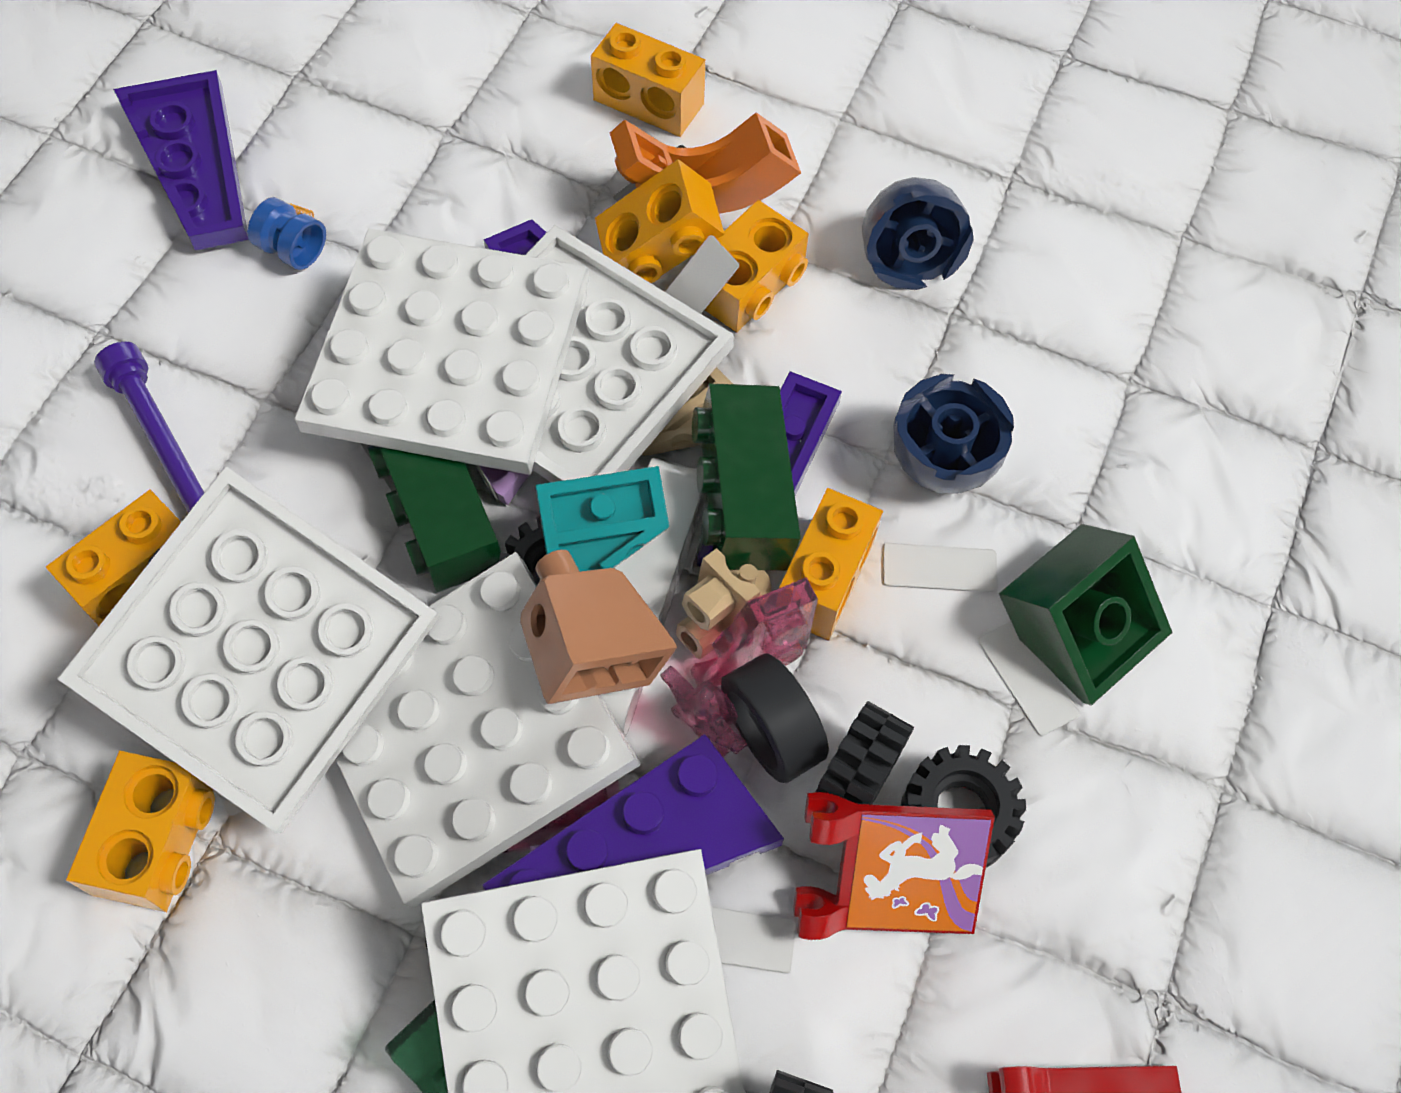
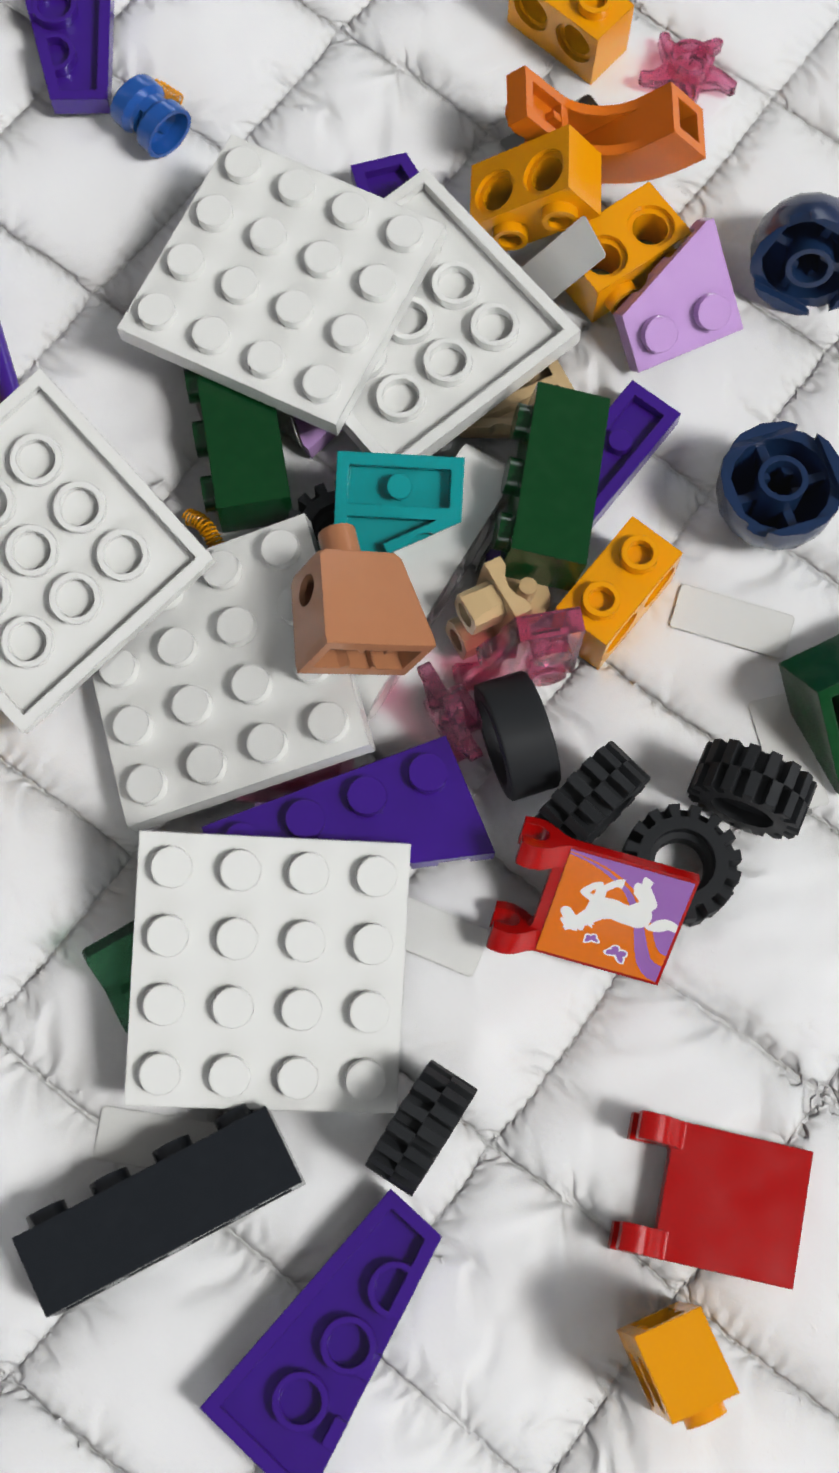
camera: 15 degrees right, 10 degrees up
(422, 594) = (199, 524): none -> light orange leg
(765, 99) = (689, 67): none -> clear pink animal
(814, 296) = (681, 304): none -> lavender wing
(1012, 715) = (752, 788): none -> black tyre

